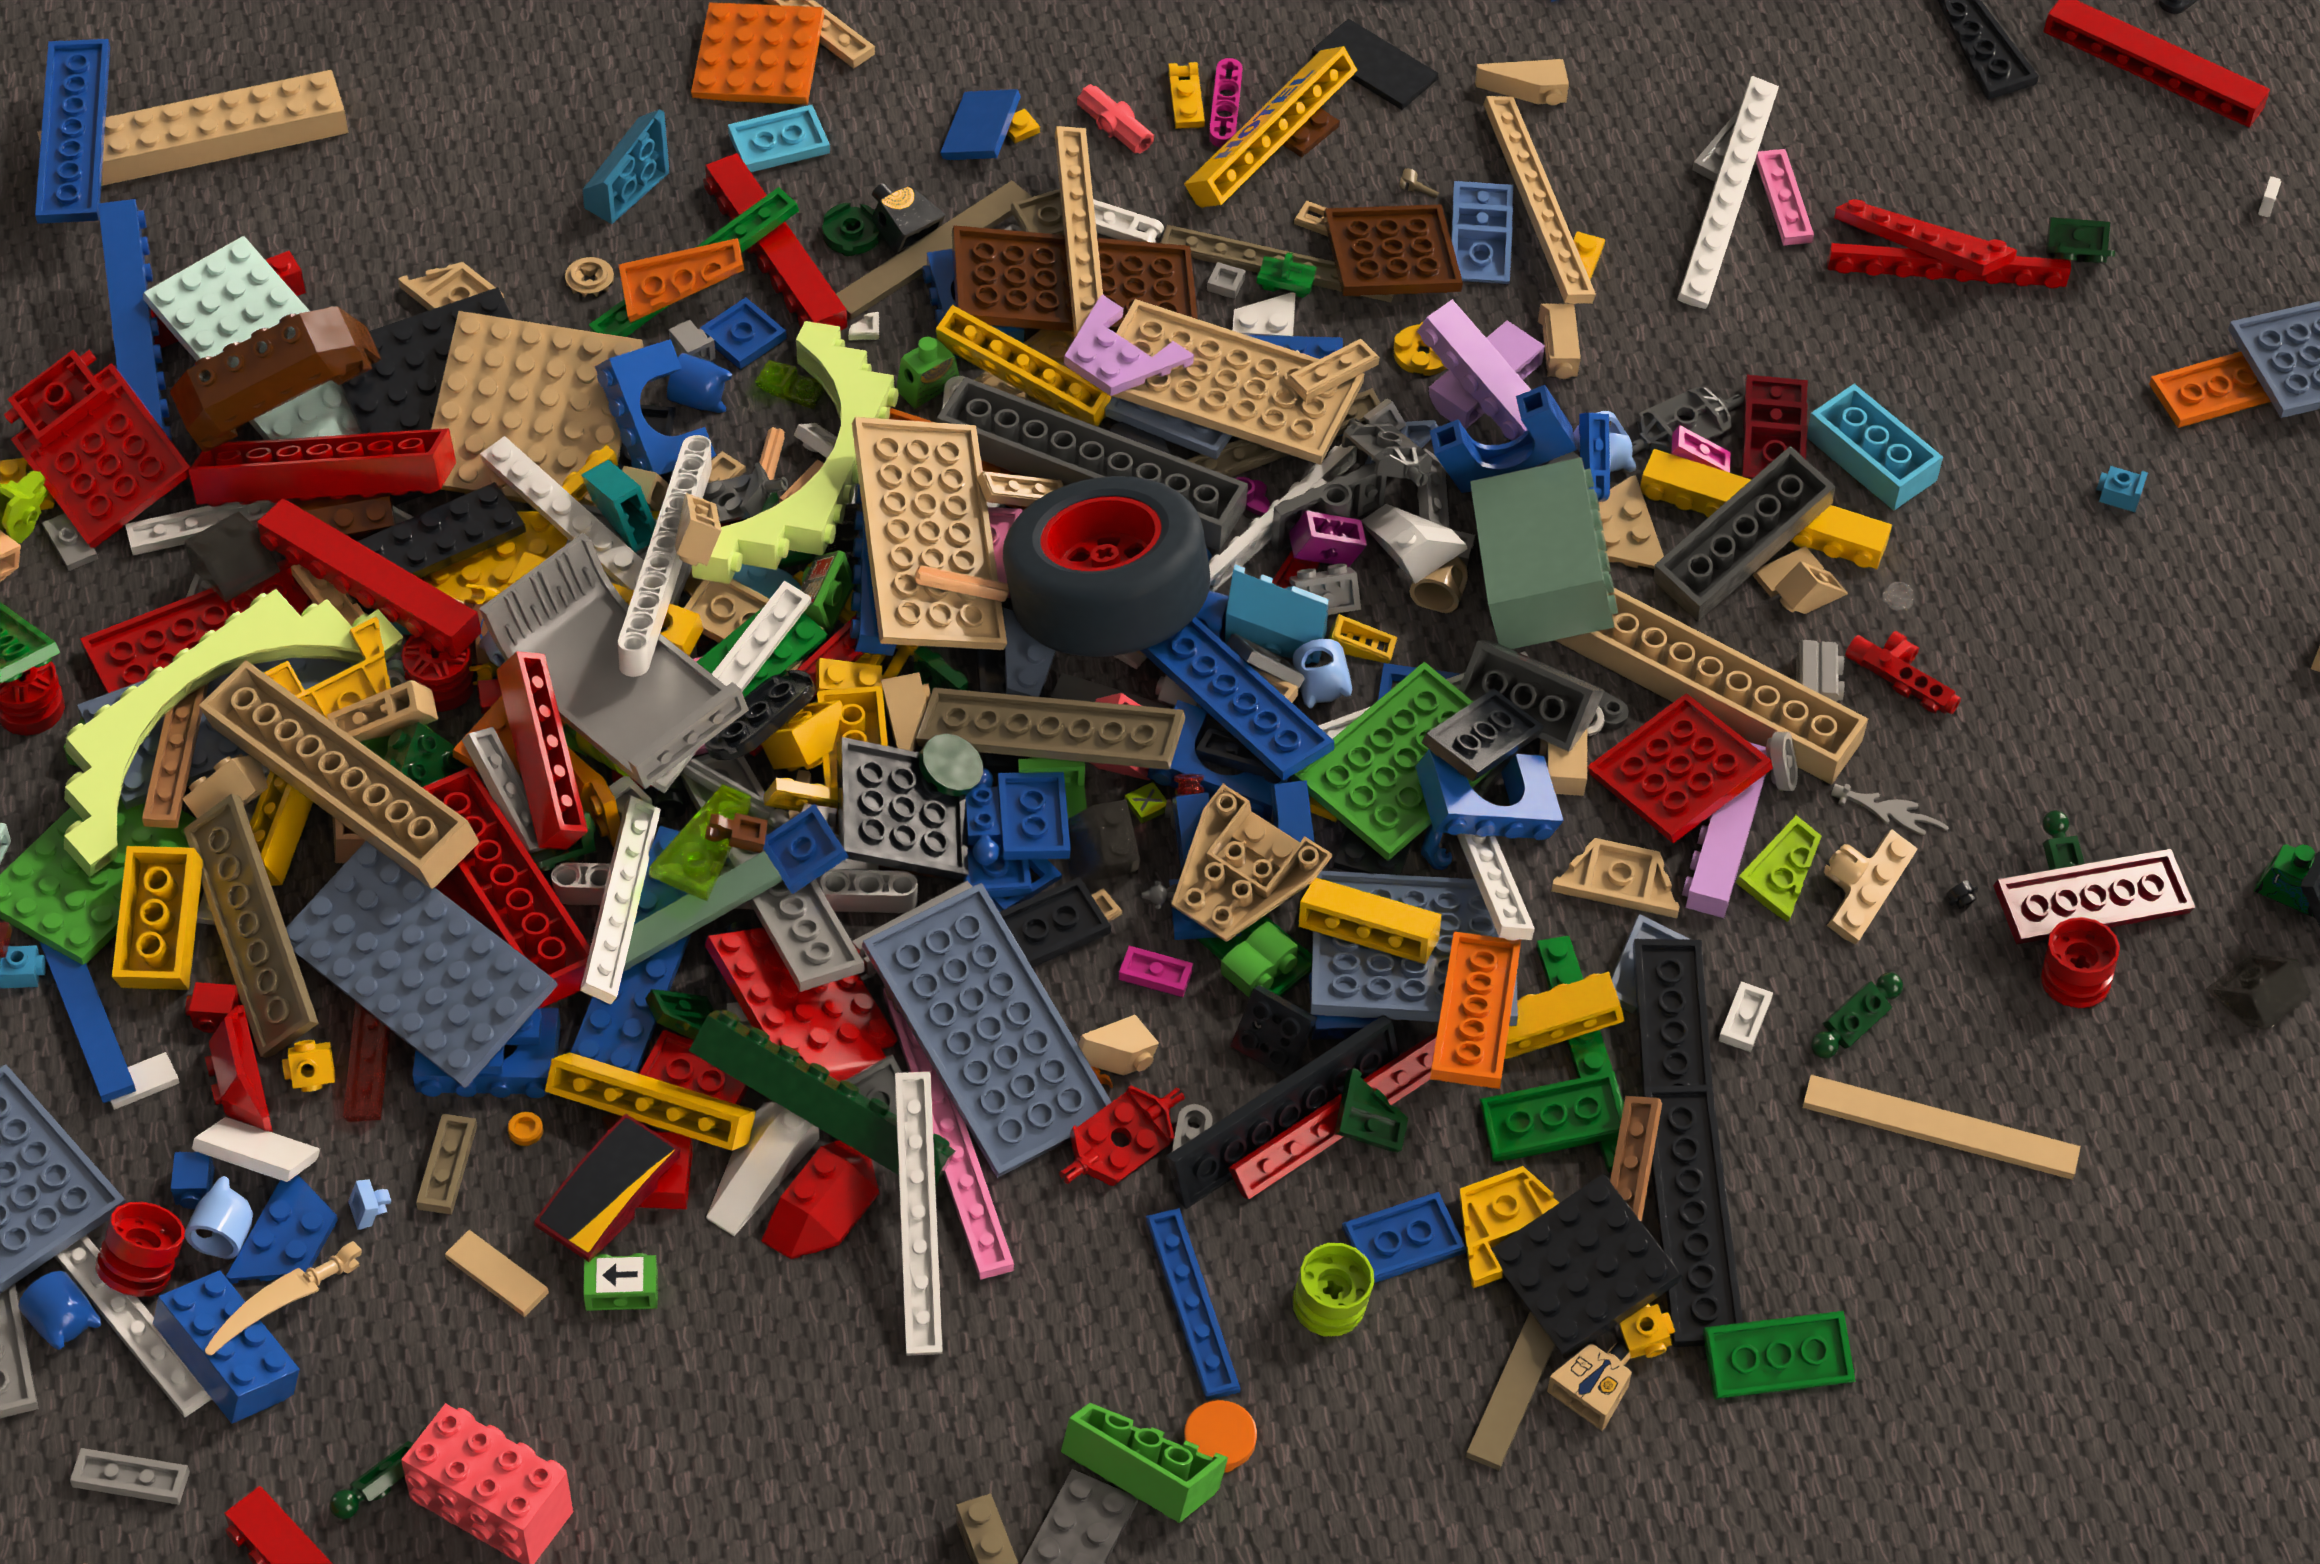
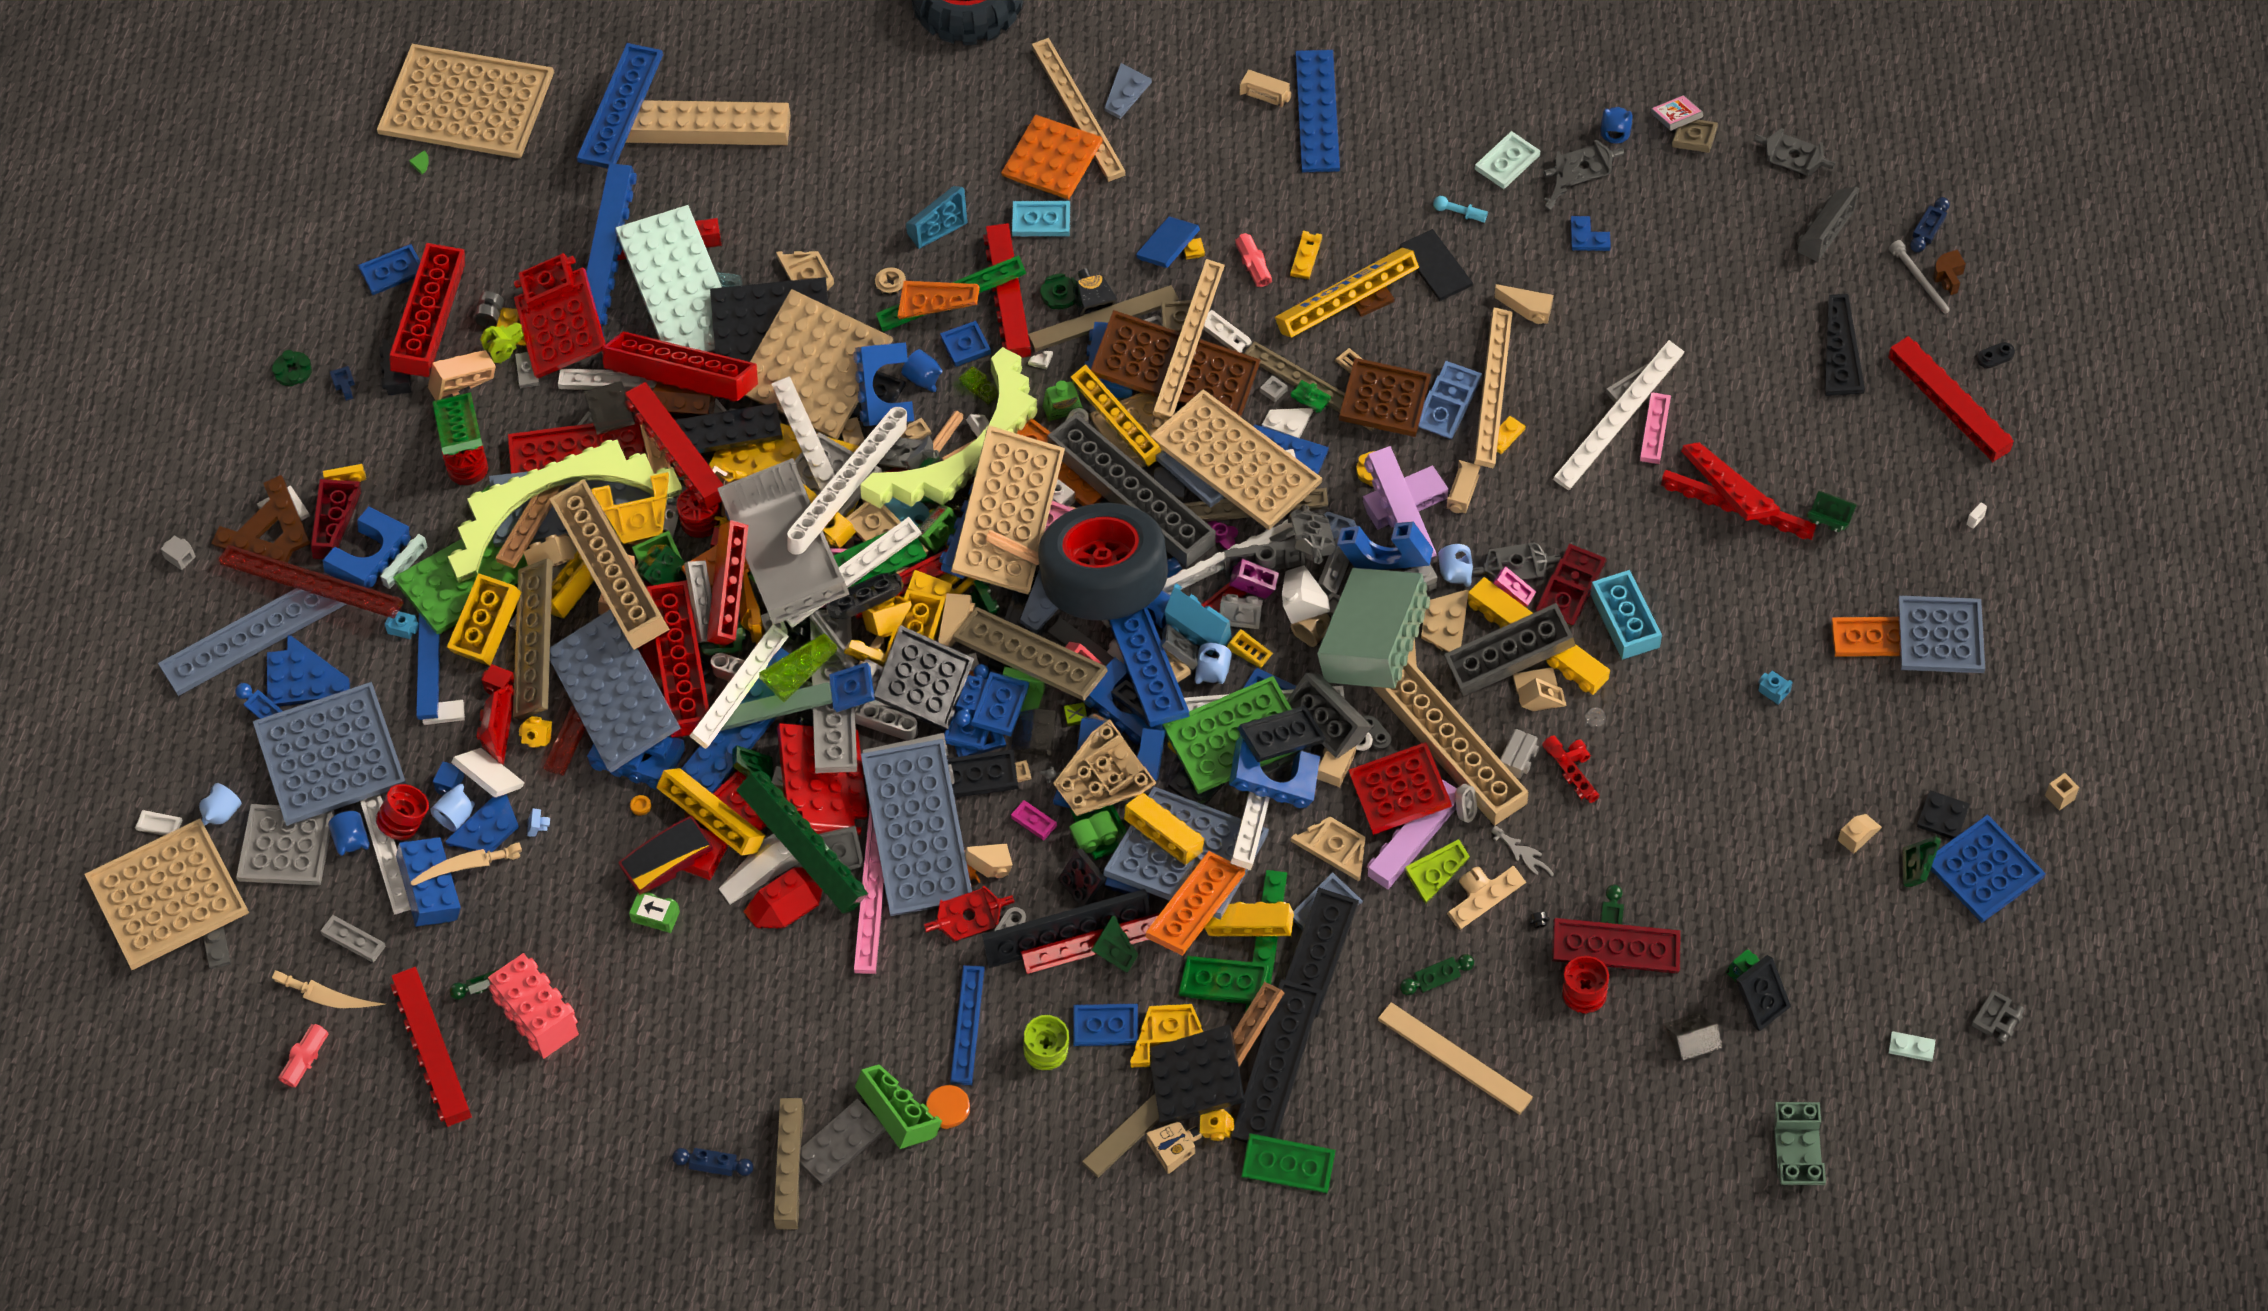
camera: 25 degrees right, 5 degrees up
(270, 371) = (668, 300): reddish brown wedge -> none
(387, 711) = (652, 533): tan slope -> none
(446, 1164) = (588, 813): dark tan plate -> none
(496, 1273) = (591, 885): tan tile -> none
(574, 482) = (834, 412): yellow plate -> none
(621, 504) = (836, 439): teal slope -> none
(652, 485) = (856, 430): tan brick -> none
(692, 341) = (931, 342): light grey brick -> none
(697, 530) = (867, 471): tan slope -> none
(743, 831) = (820, 667): reddish brown plate -> none
(918, 1214) = (828, 924): white plate -> none
(951, 764) = (963, 658): tile -> none
(1014, 488) = (1075, 495): tan tile -> none
(1111, 360) = (1167, 427): lavender wing -> none
(1189, 784) = (1098, 711): clear red bush -> none
(1225, 103) = (1326, 266): dark pink beam -> none
(1333, 370) = (1302, 470): tan tile -> none
(1384, 413) = (1325, 507): light grey plate -> none
(1411, 176) = (1421, 350): dark tan hand -> none
(1432, 852) = (1231, 797): blue arm -> none
(1596, 450) = (1440, 571): blue plate -> none
(1745, 1016) = (1369, 954): white plate -> none

